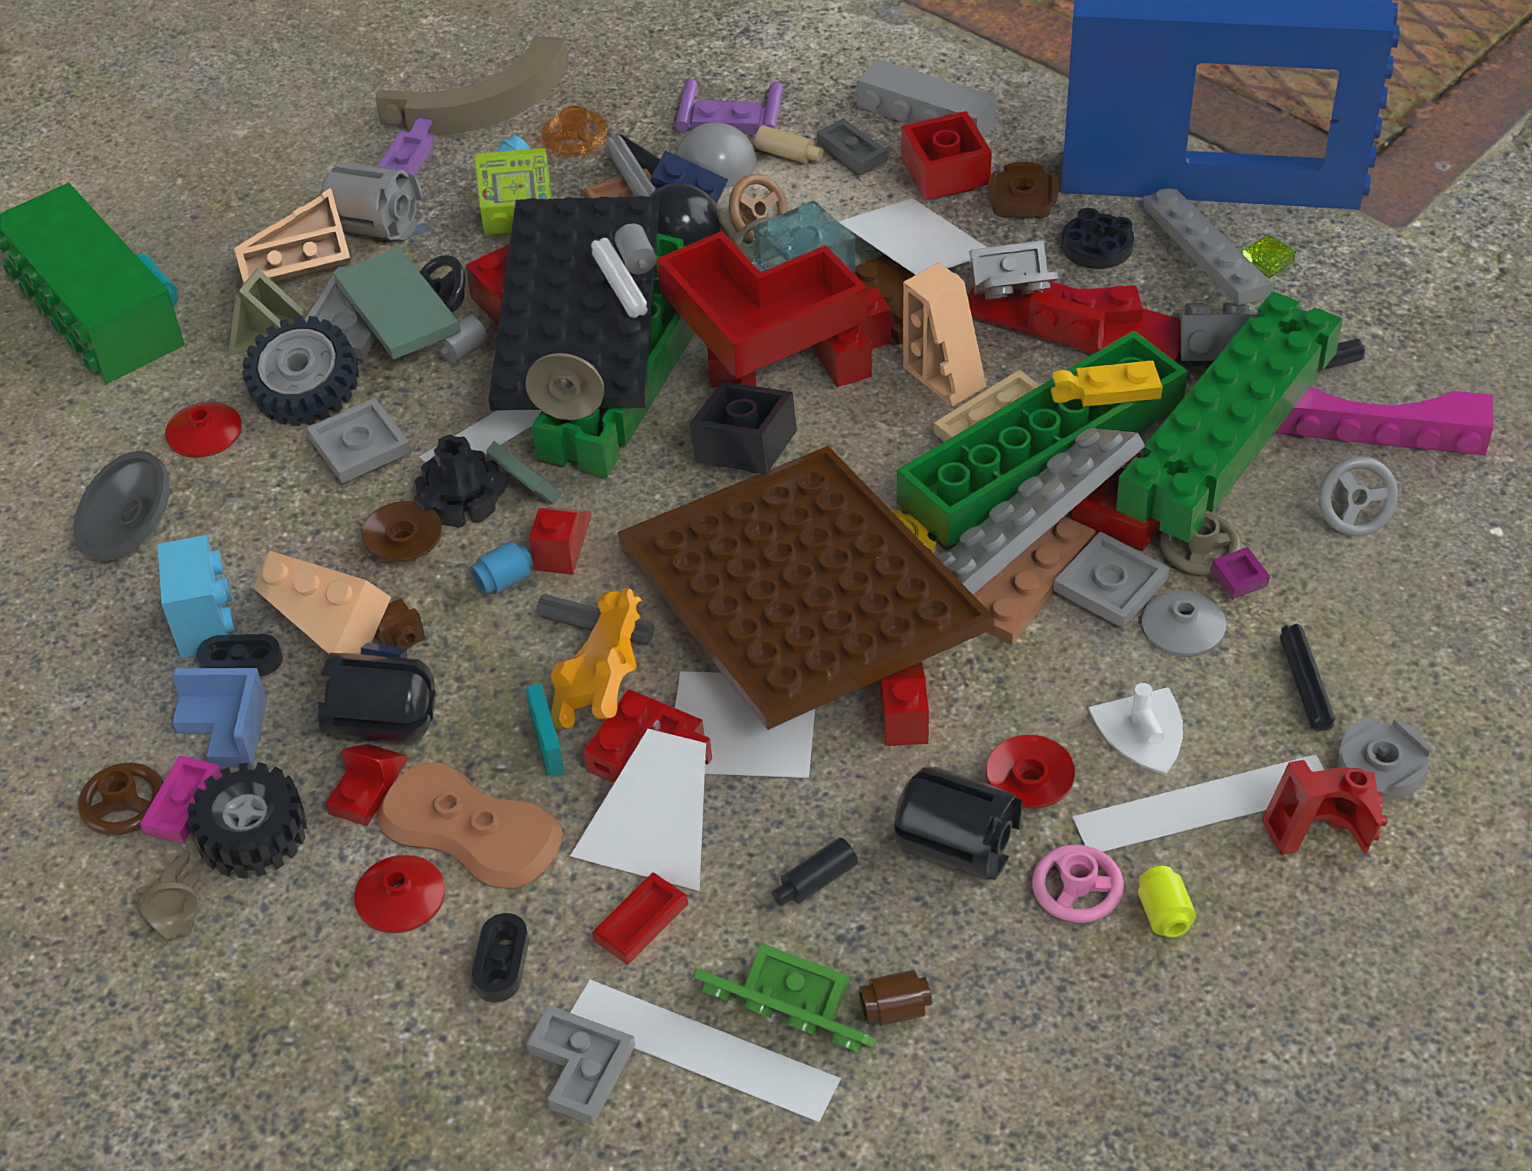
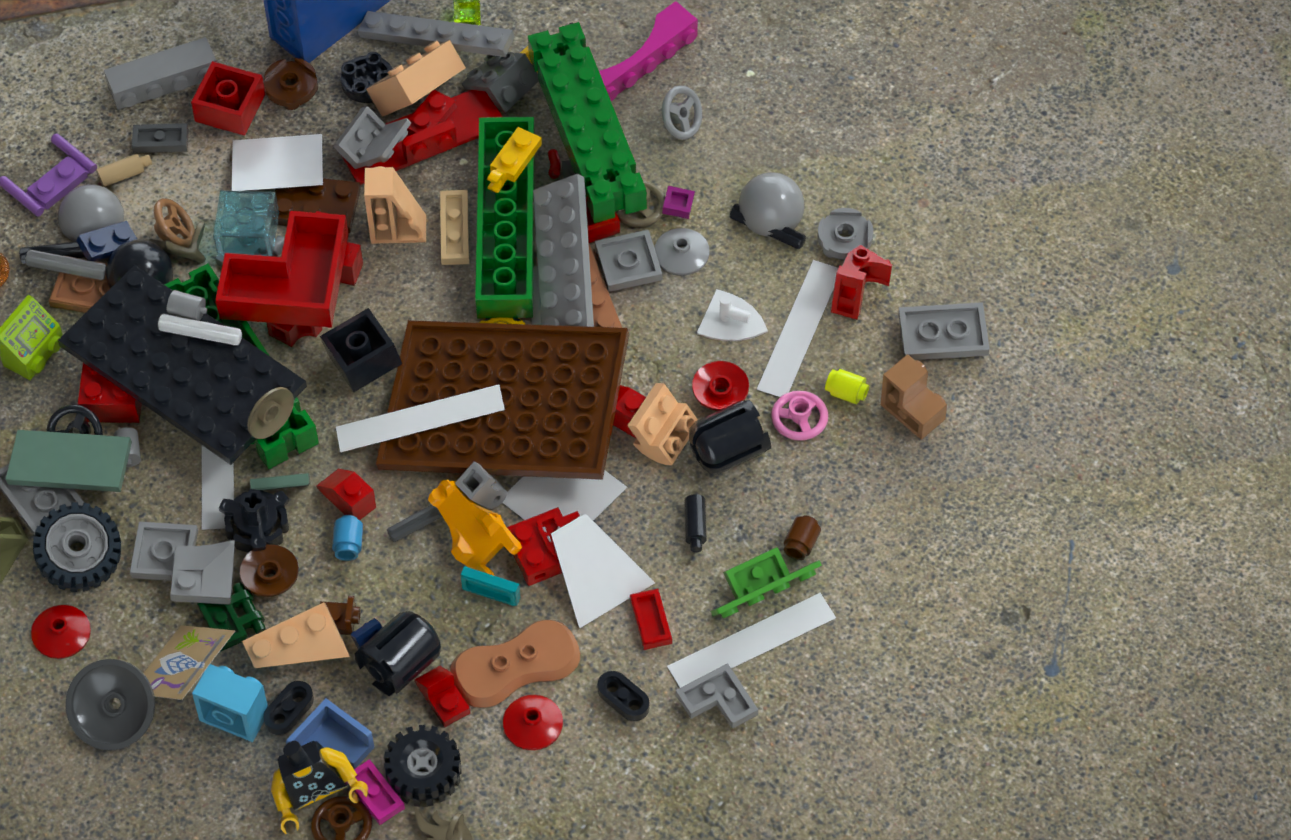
camera: 55 degrees left, 10 degrees up
(141, 718) = (309, 775): none -> torso
(213, 525) = (185, 660): none -> tan sticker
(315, 529) = (224, 616): none -> dark green plate
(344, 479) = (203, 573): none -> light grey plate
(661, 634) = (481, 487): none -> light grey leg
(710, 529) = (420, 418): none -> white sticker
(910, 737) = (661, 425): none -> light nougat brick
(1135, 260) = (416, 78): none -> light nougat wedge
(1217, 975) = (910, 400): none -> medium nougat brick
(1341, 657) = (771, 203): none -> light grey piece
(1361, 956) = (944, 331): none -> light grey plate

